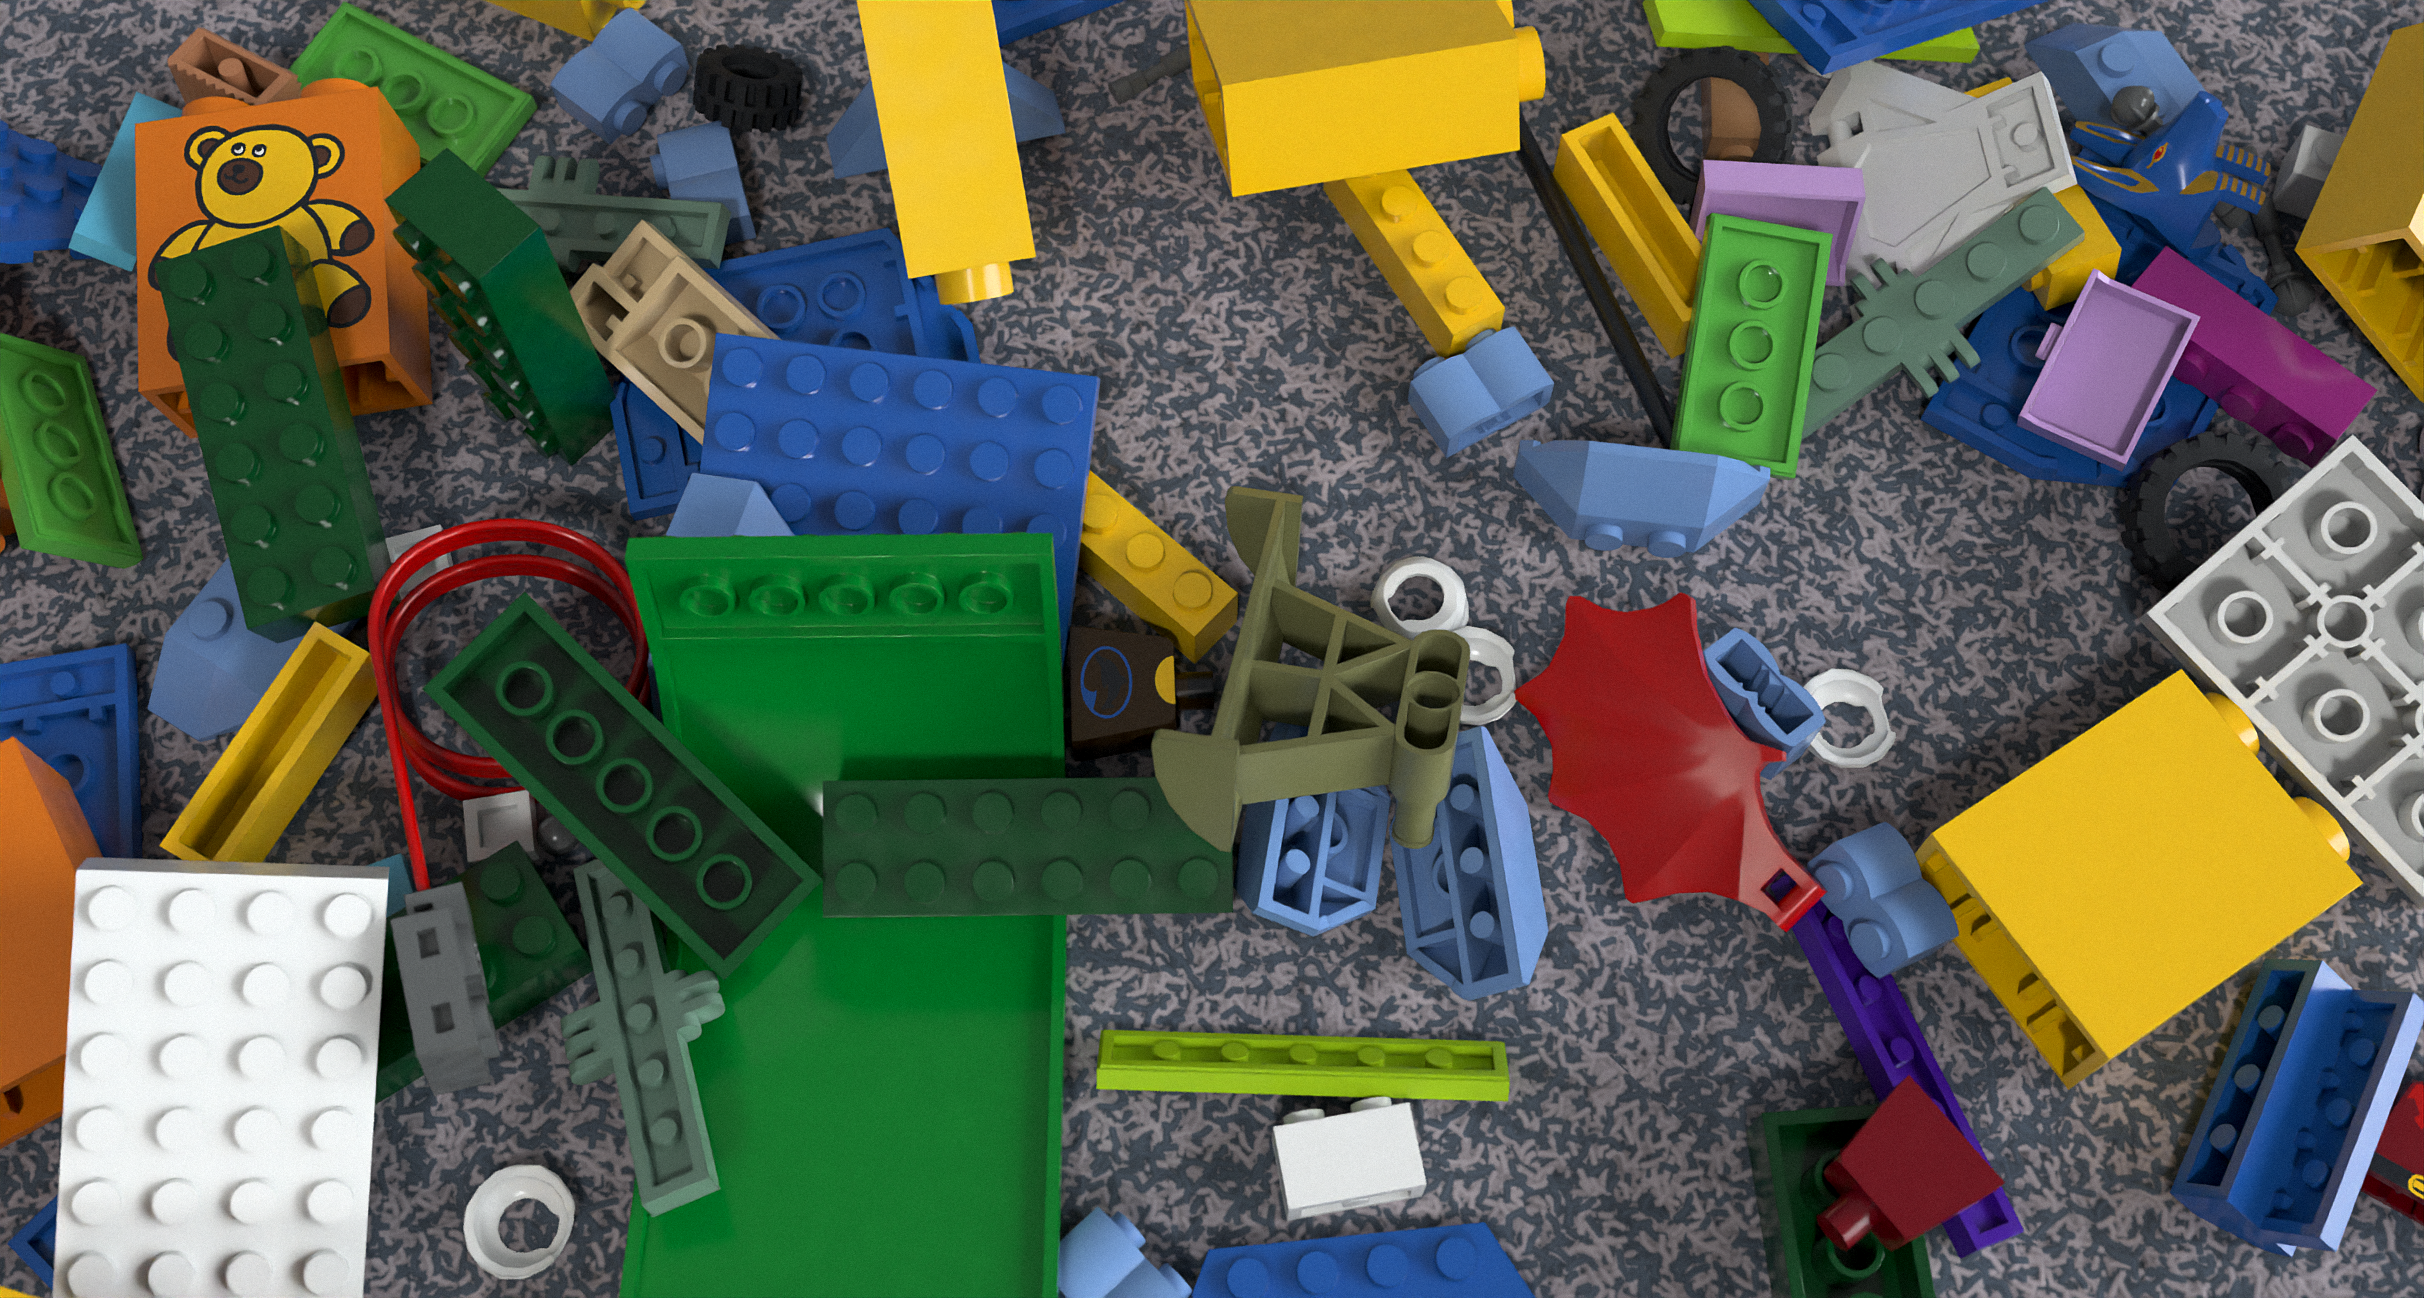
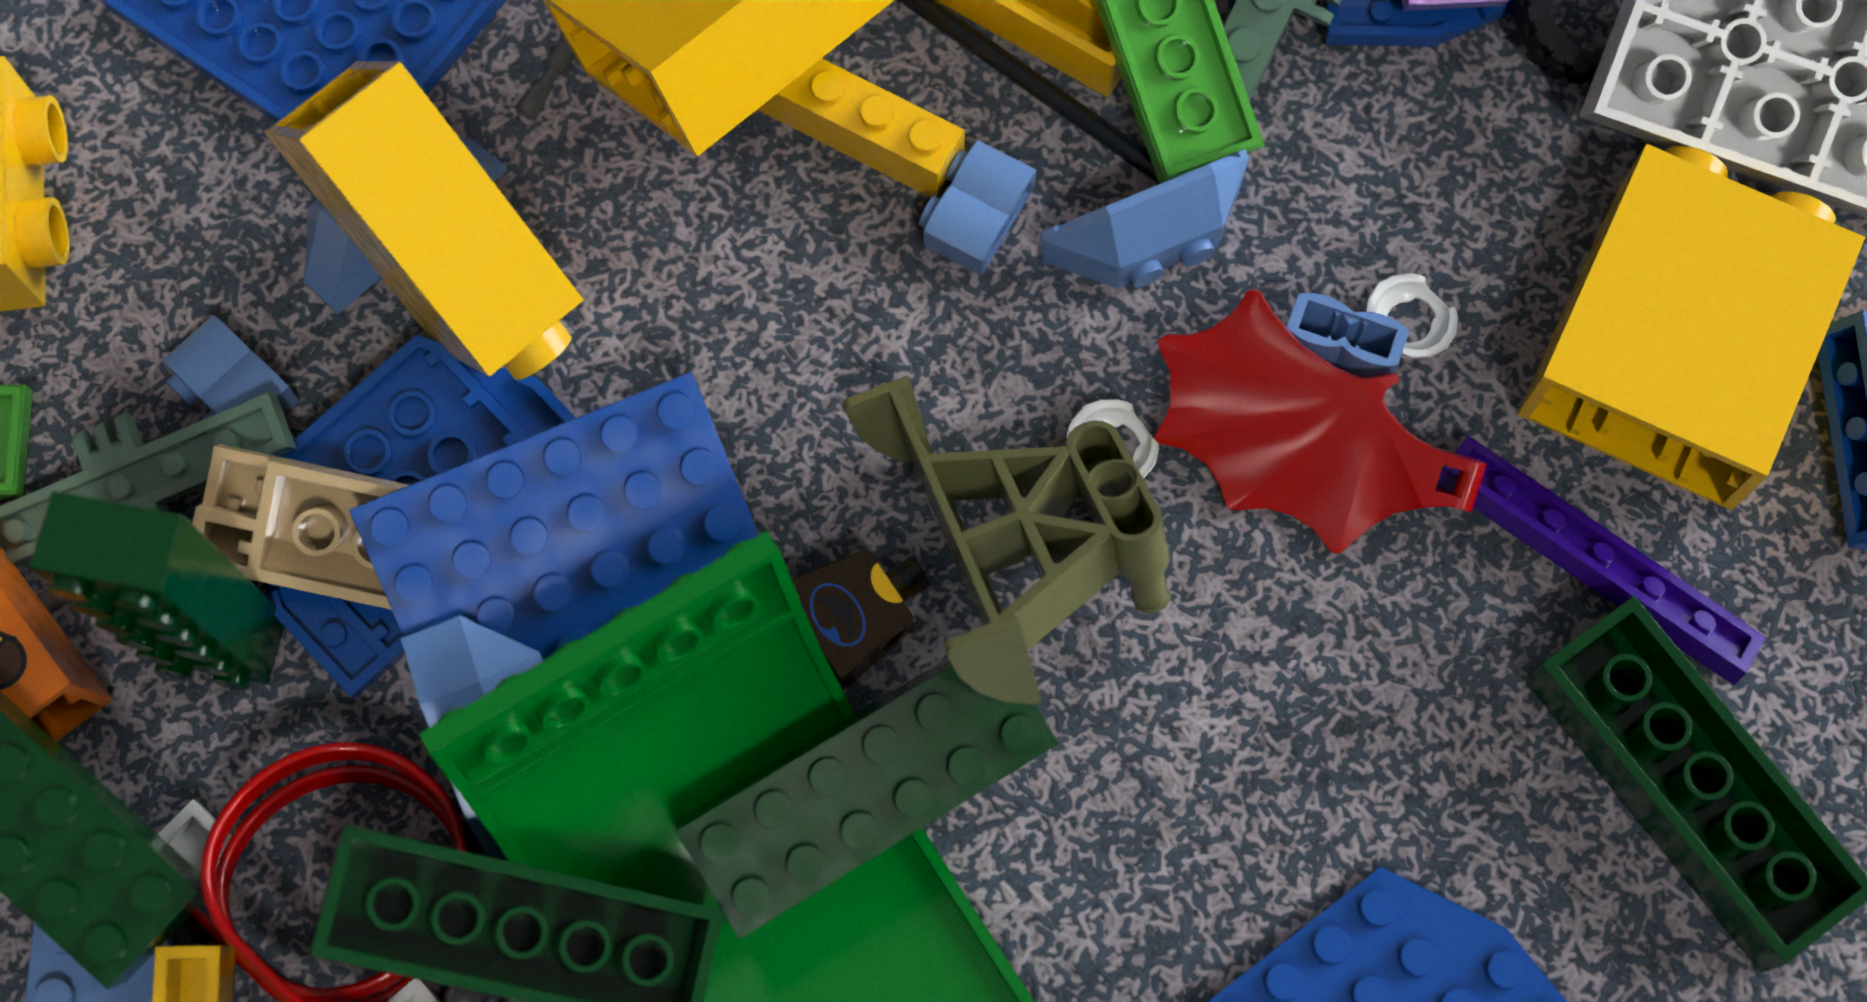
camera: 30 degrees left, 5 degrees up
(620, 76) = (92, 325): medium blue brick -> none
(747, 88) = (214, 277): black tyre -> none
(1153, 573) = (817, 503): yellow brick -> none
(1302, 1065) = (1171, 829): lime tile -> none
(1313, 856) = (1090, 665): medium blue wedge -> none
(1347, 1158) = (1251, 880): white brick -> none
(1451, 616) = (1047, 434): white piece -> none
(1476, 890) = (1223, 618): medium blue wedge -> none
(1883, 900) = (1527, 446): medium blue brick -> none
(1903, 1173) = (1673, 649): dark red torso -> none

